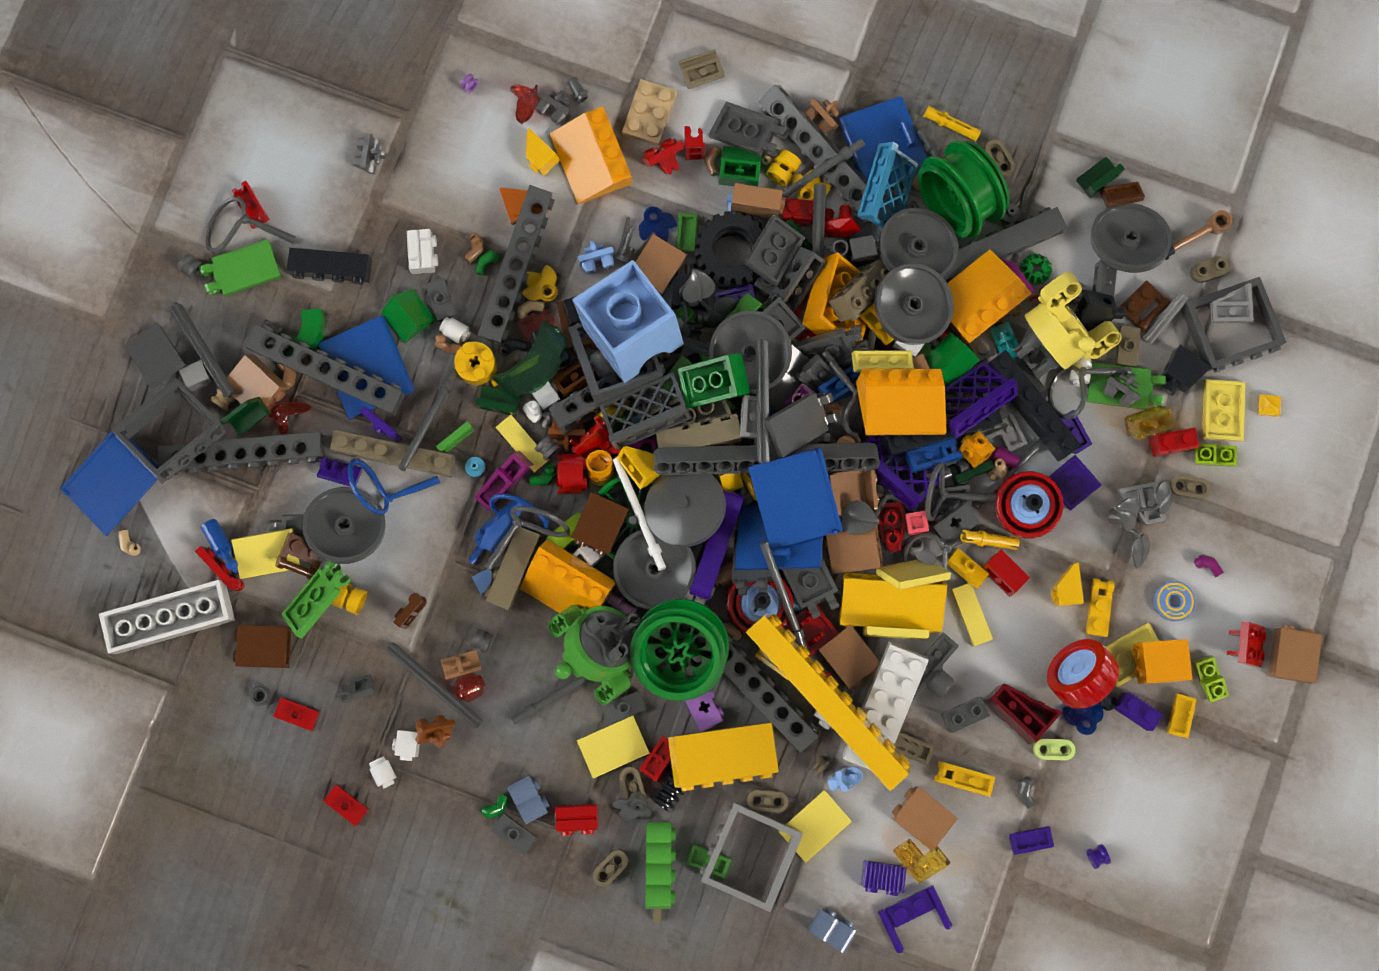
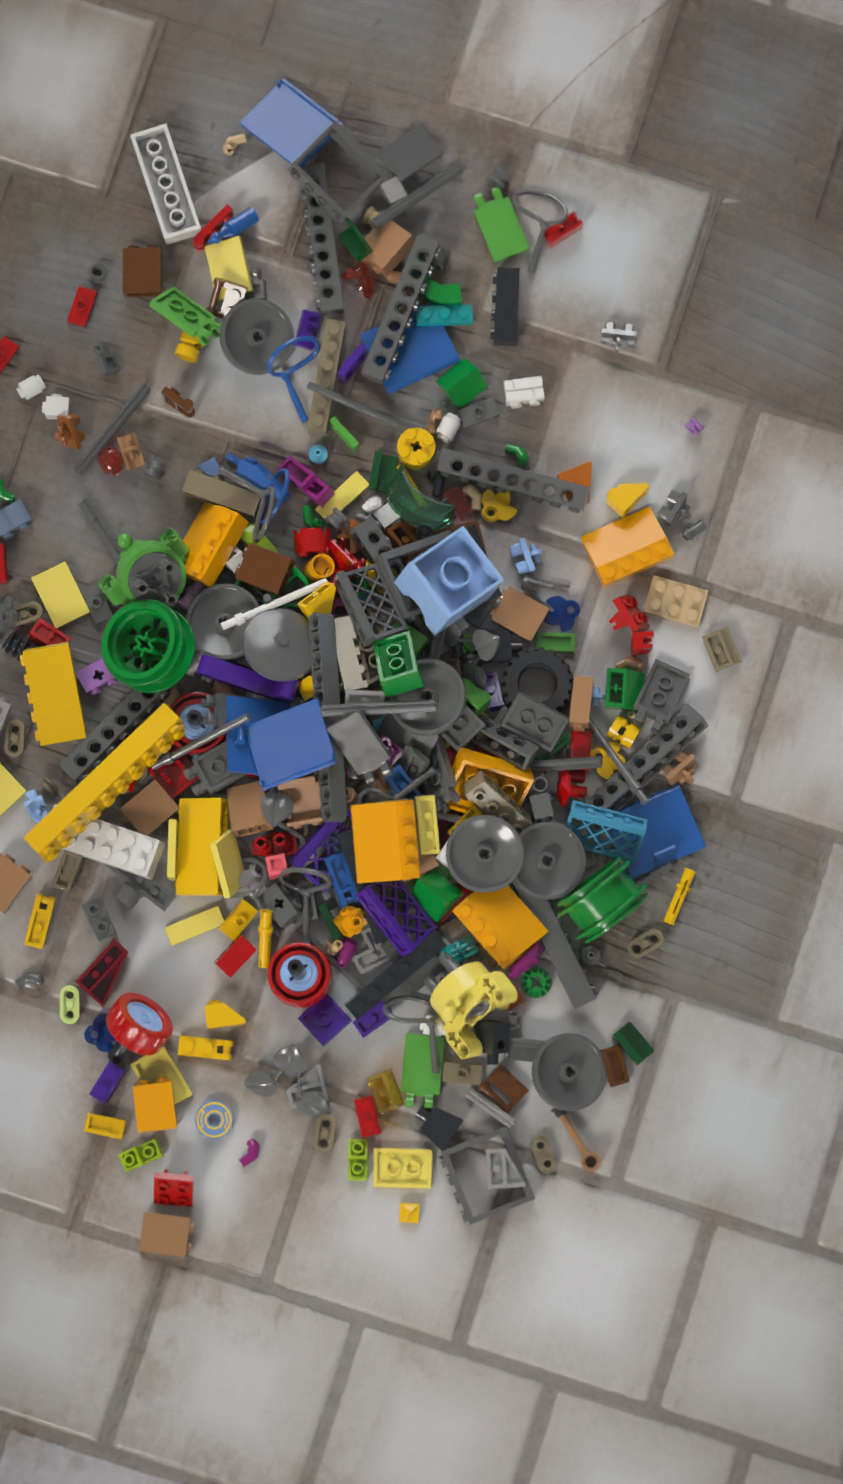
camera: 90 degrees right, 0 degrees up
(334, 328) = (444, 315): none -> teal plate
(477, 248) = (530, 444): medium nougat arm -> none
(526, 101) = (677, 482): clear red piece -> none
(1130, 395) = (419, 1065): flat silver hips -> none

